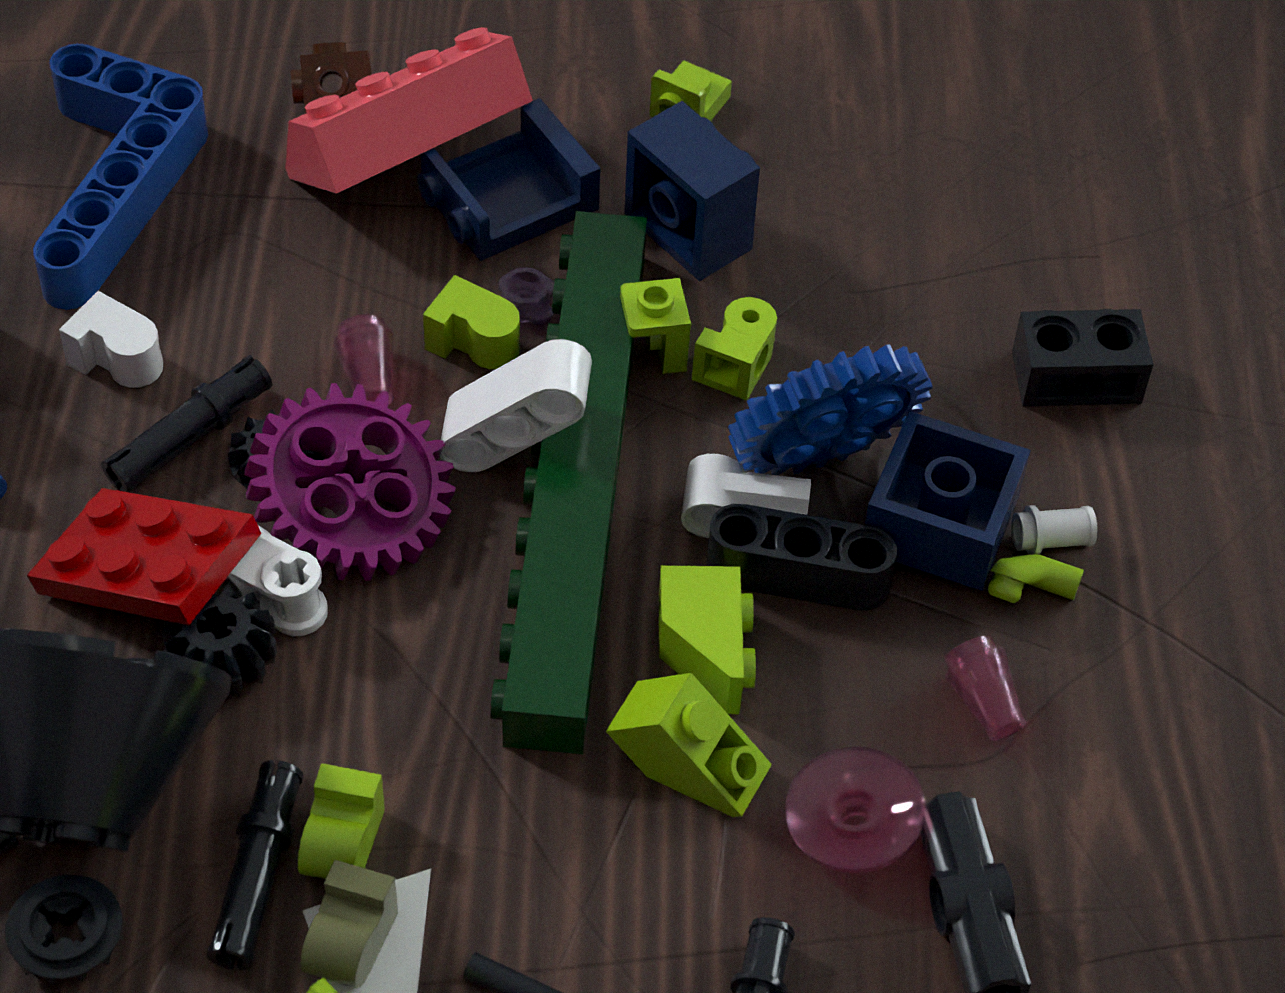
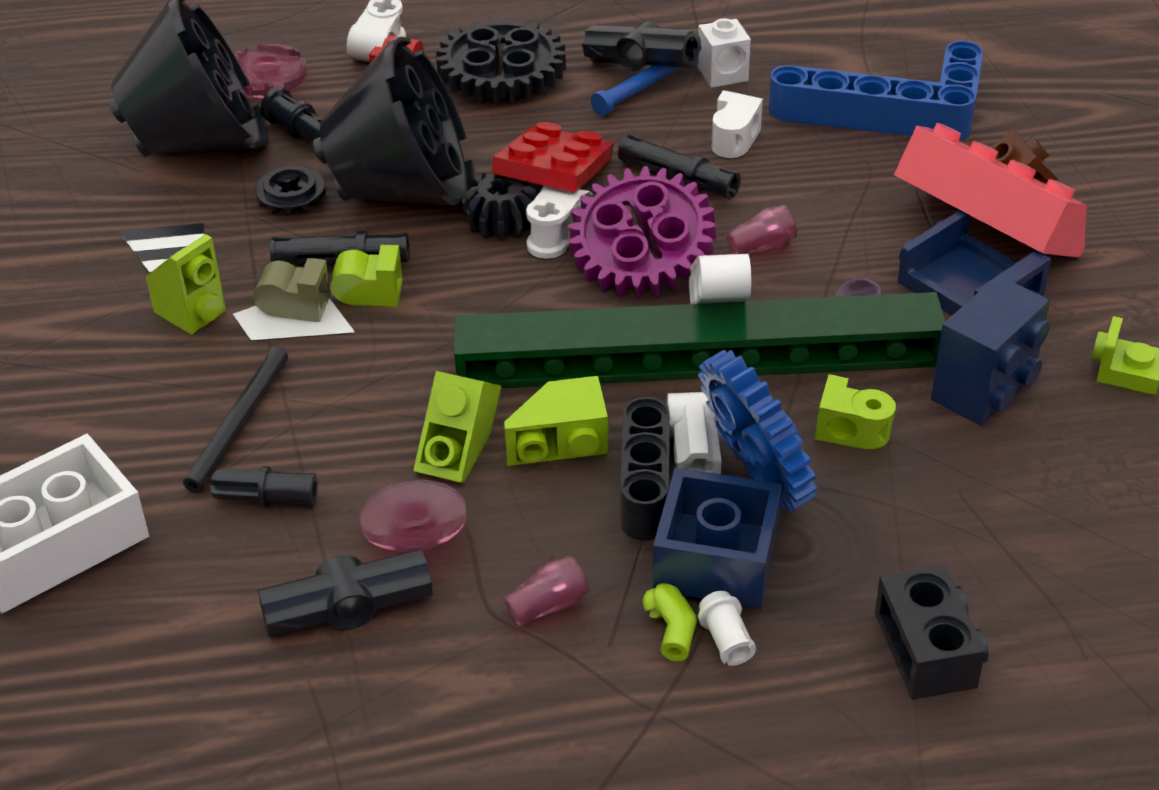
camera: 85 degrees right, 10 degrees down
(473, 323) = (817, 268): lime leg -> none
(662, 317) = (851, 353): lime bracket -> none

